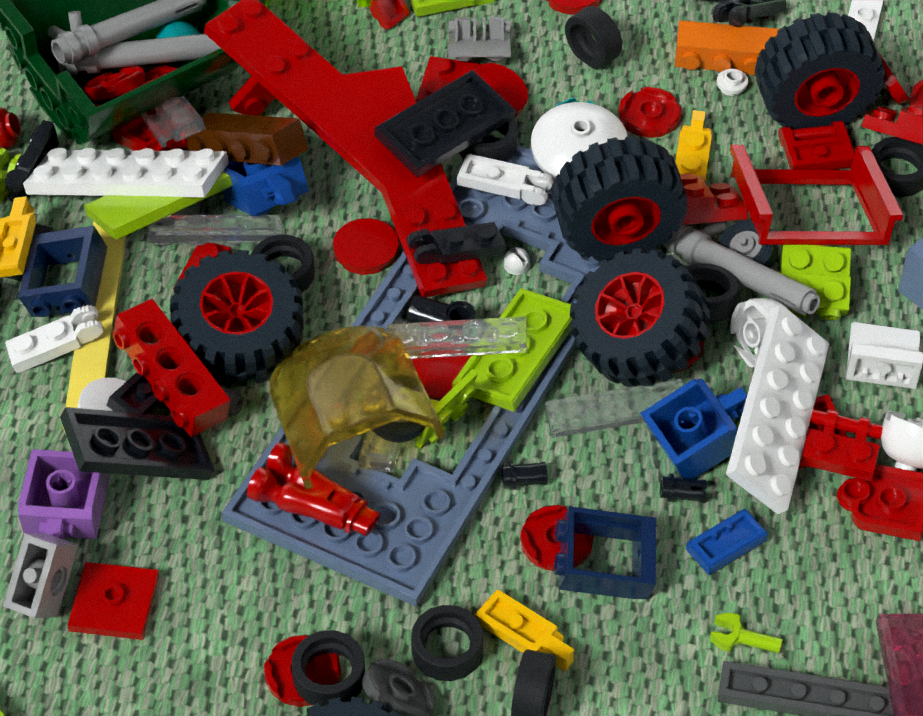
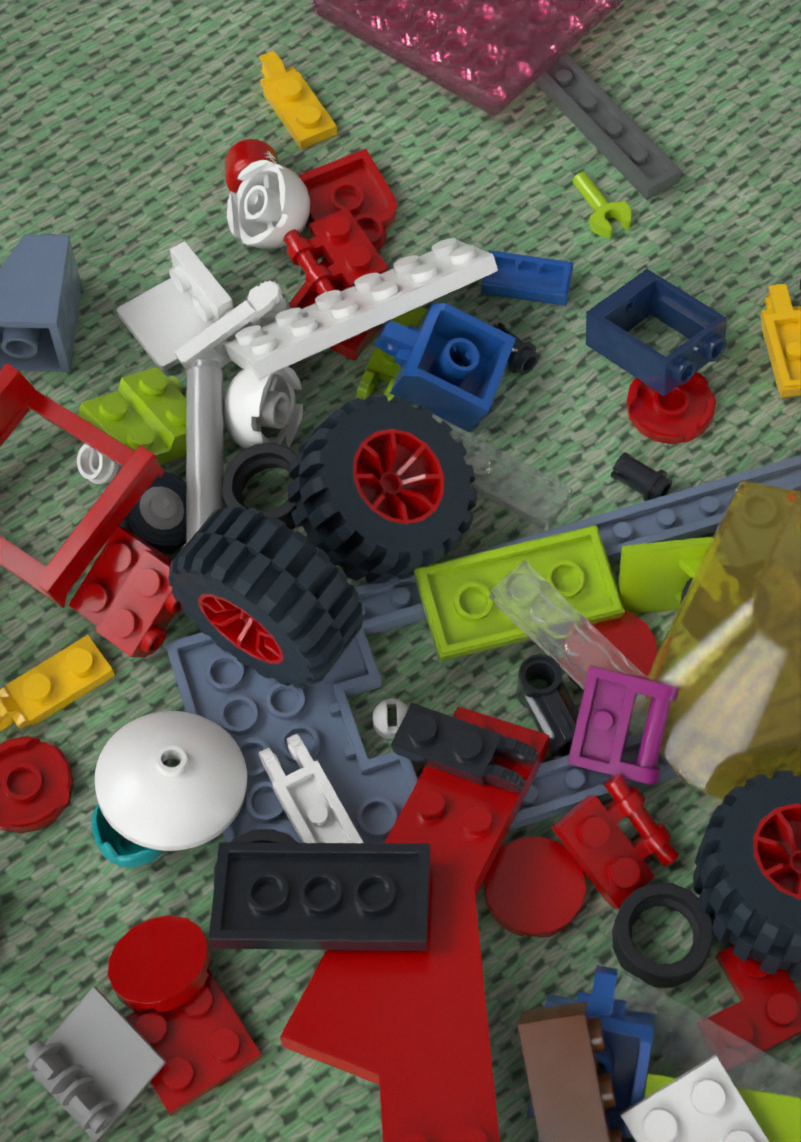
camera: 135 degrees left, 10 degrees up
(344, 279) = (603, 849): none -> red plate
(396, 305) = (606, 721): none -> magenta plate
(837, 360) = (260, 309): none -> white hinge

